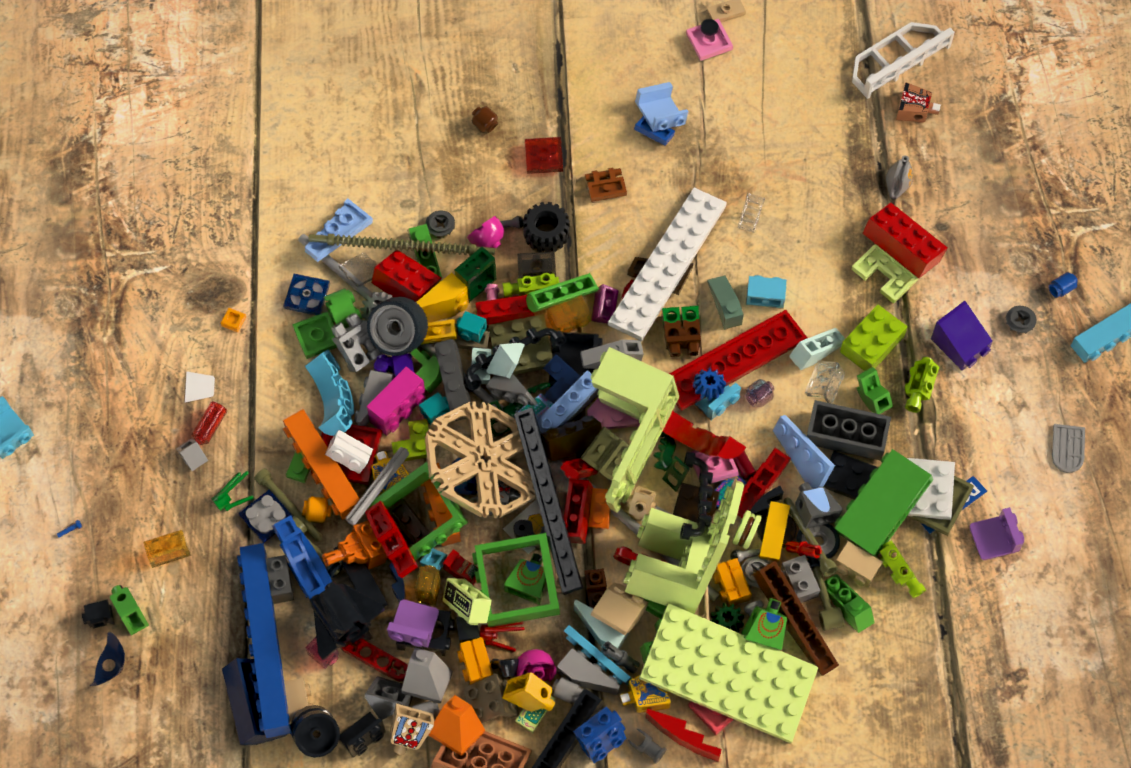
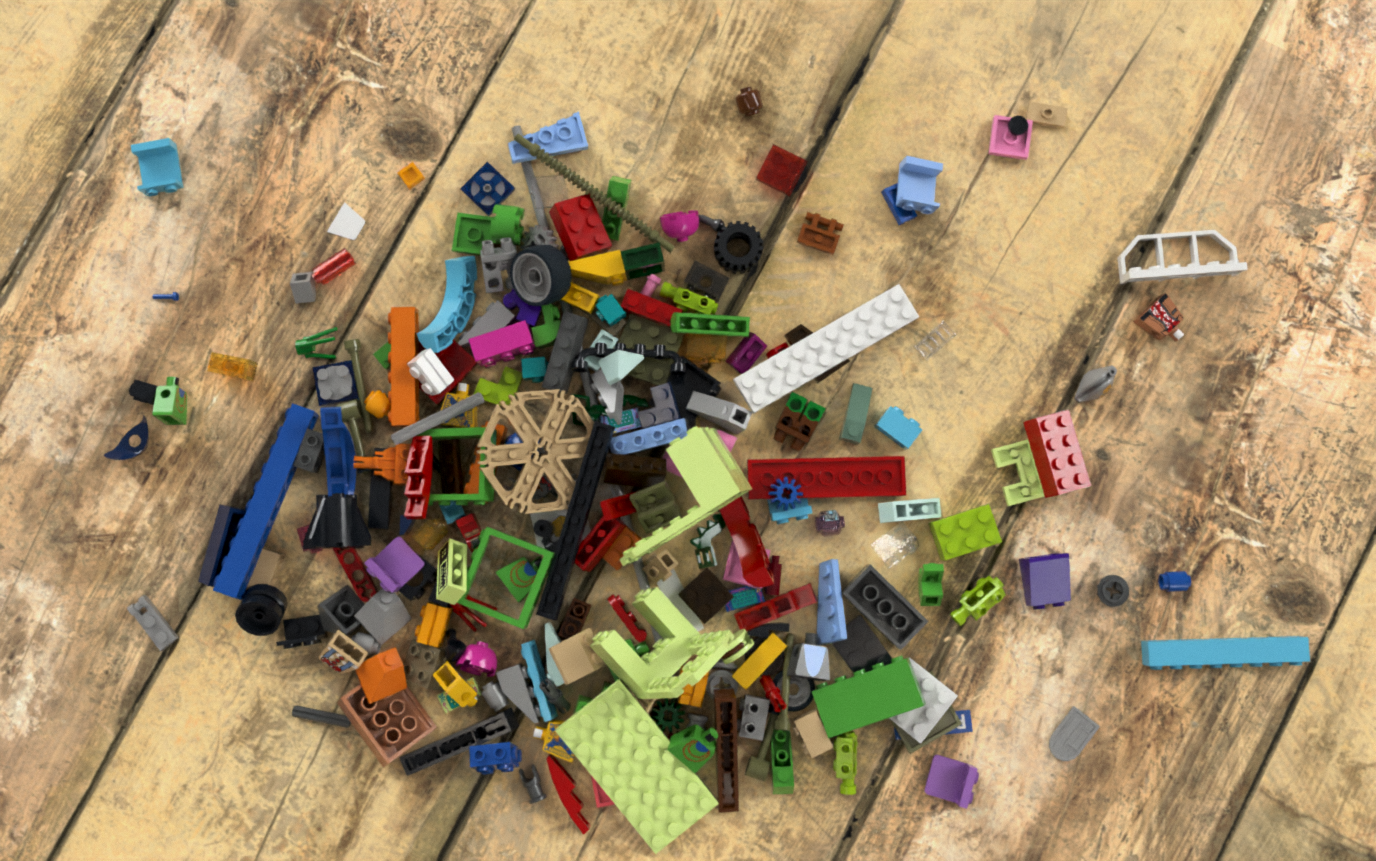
camera: 30 degrees right, 20 degrees up
(440, 216) = (652, 179): dark grey gear -> none
(704, 492) = (707, 609): black bar -> none

